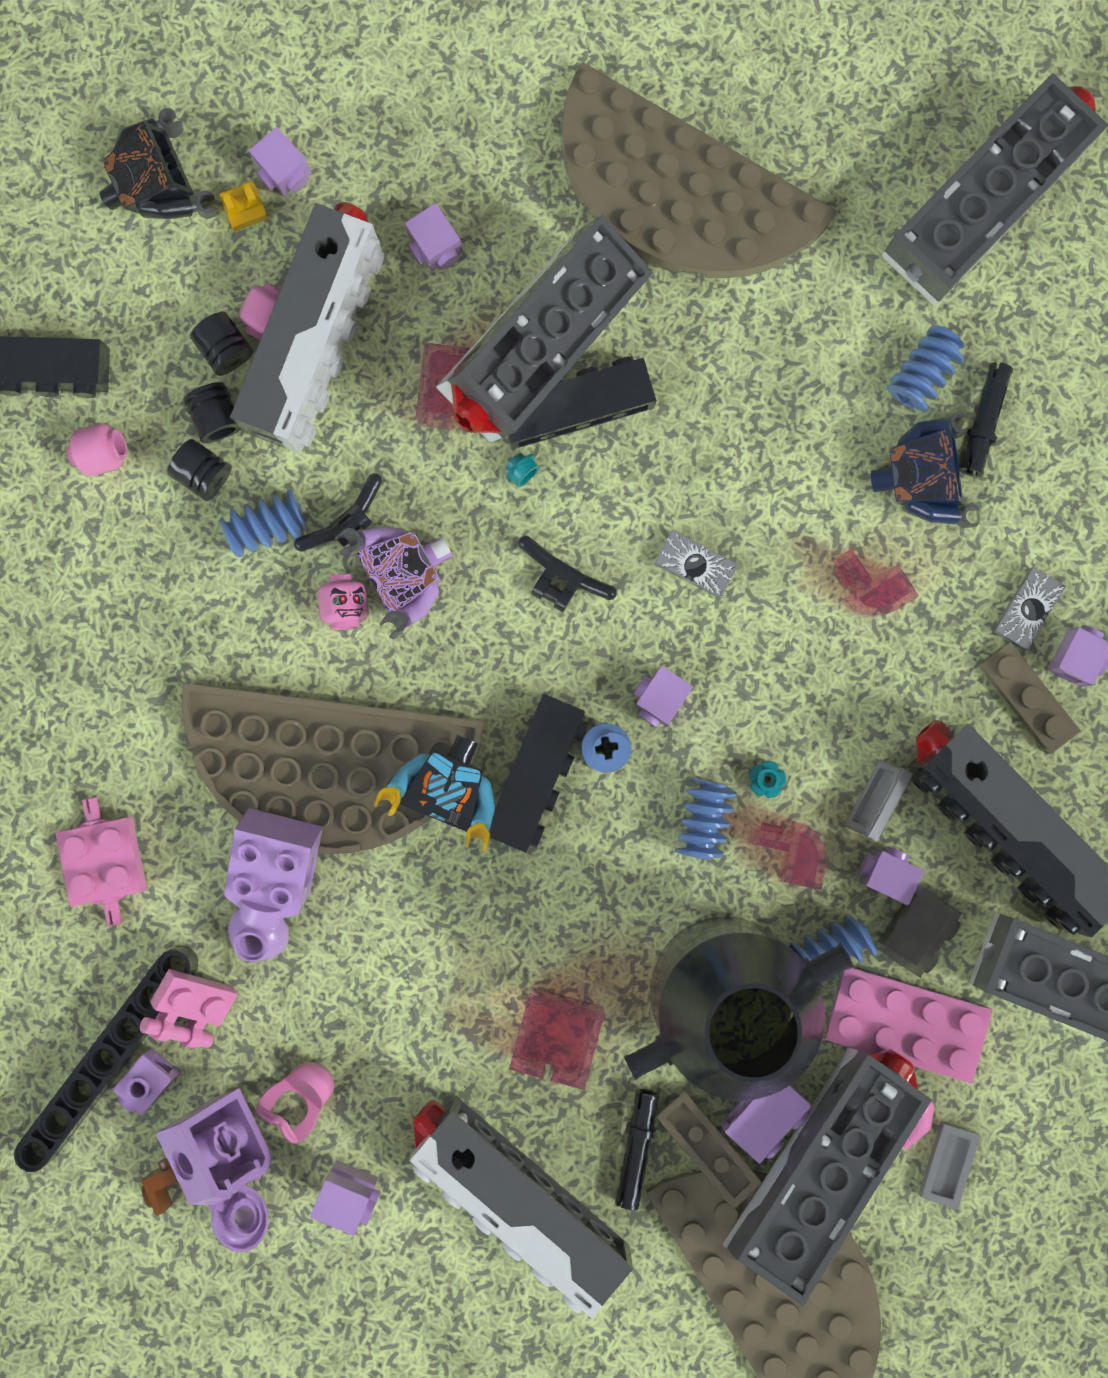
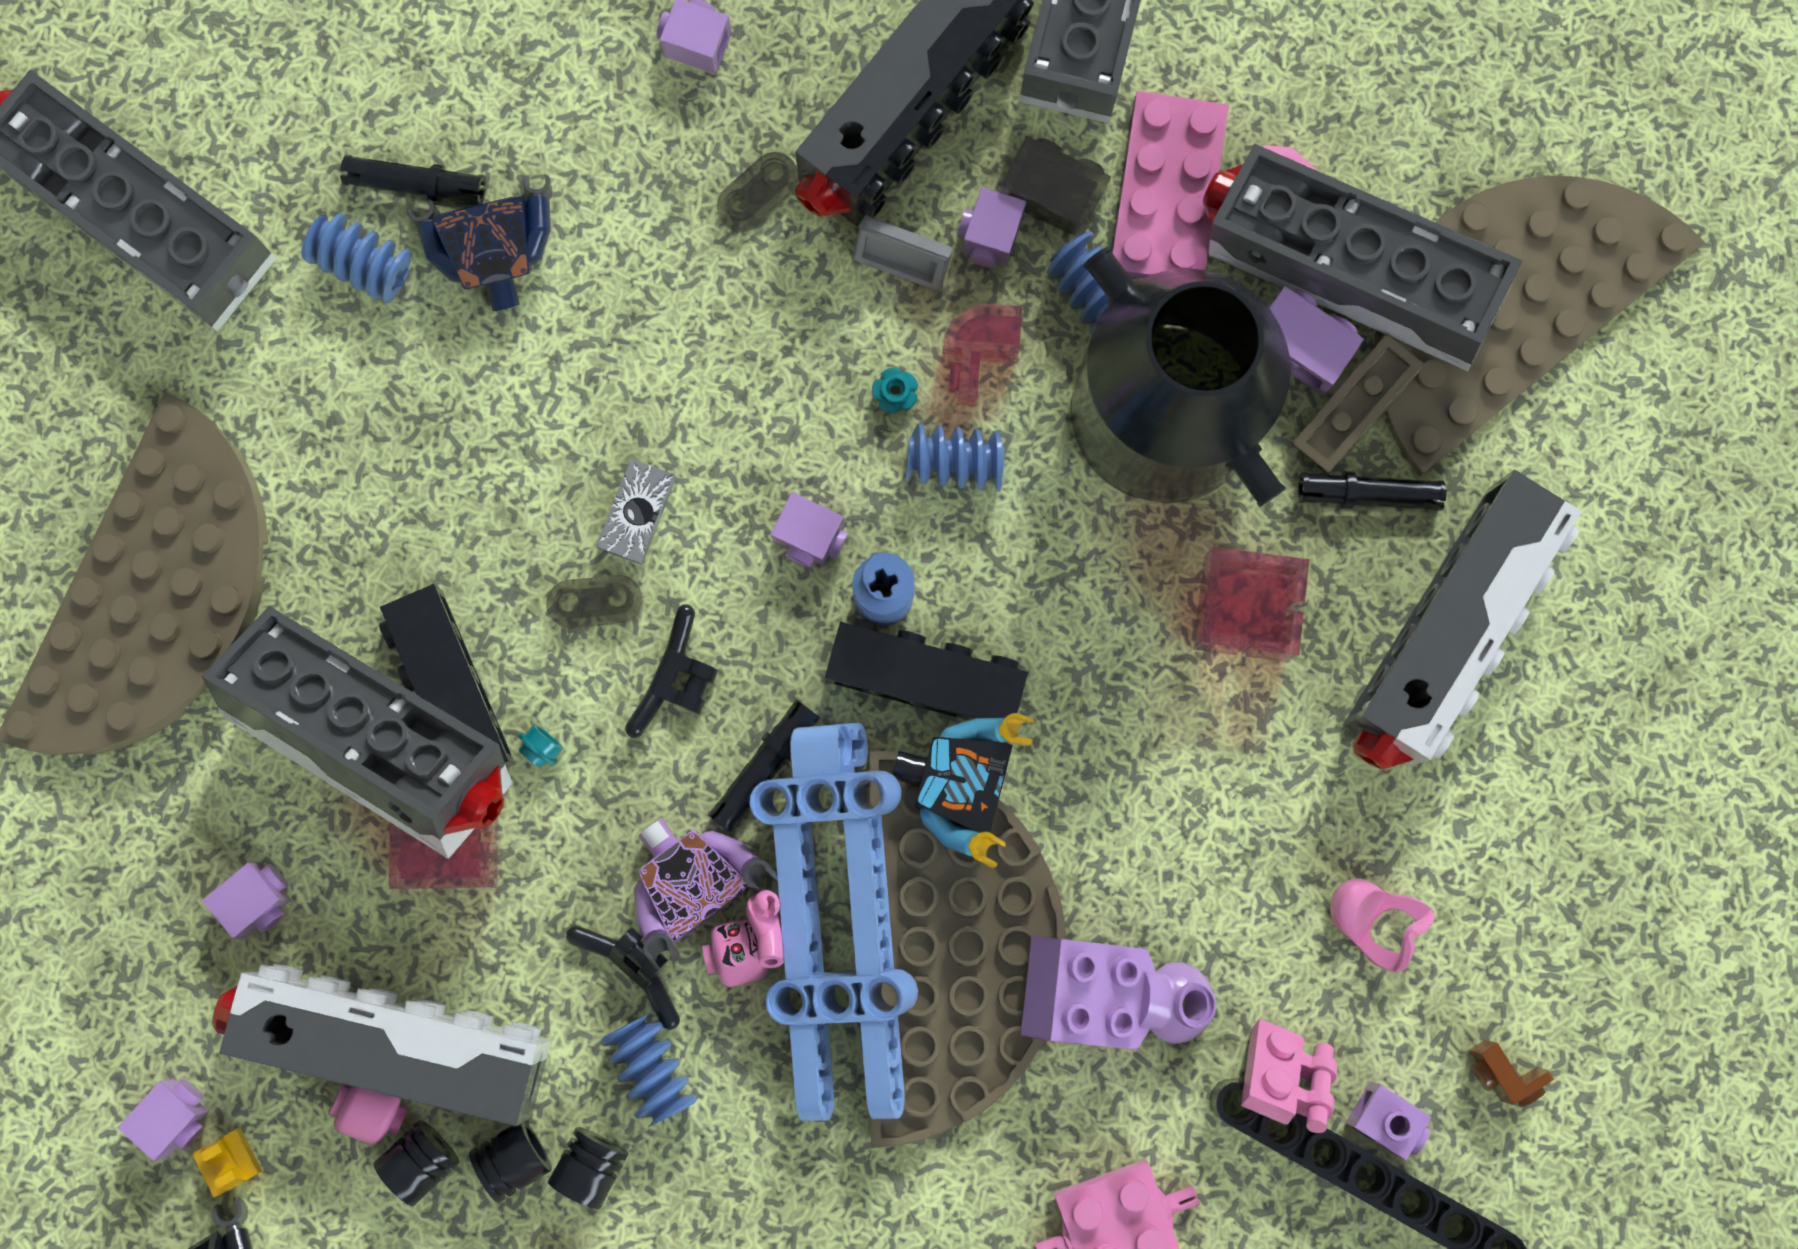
camera: 105 degrees left, 5 degrees down
(213, 1158) = (1467, 1014): lavender brick -> none
(346, 1198) = (1491, 838): lavender brick -> none
(357, 624) = (765, 921): none -> bright pink arm
(477, 632) = (762, 767): none -> black pin
(478, 683) = (828, 758): none -> light blue beam
(629, 523) = (594, 602): none -> clear smoke plate
(875, 596) = (650, 290): clear pink brick -> none
(942, 693) = (759, 191): none -> clear smoke plate
(949, 1165) = (1329, 120): light grey tile -> none
(1029, 608) = (643, 103): tile -> none
(1029, 698) = (753, 91): dark tan plate -> none

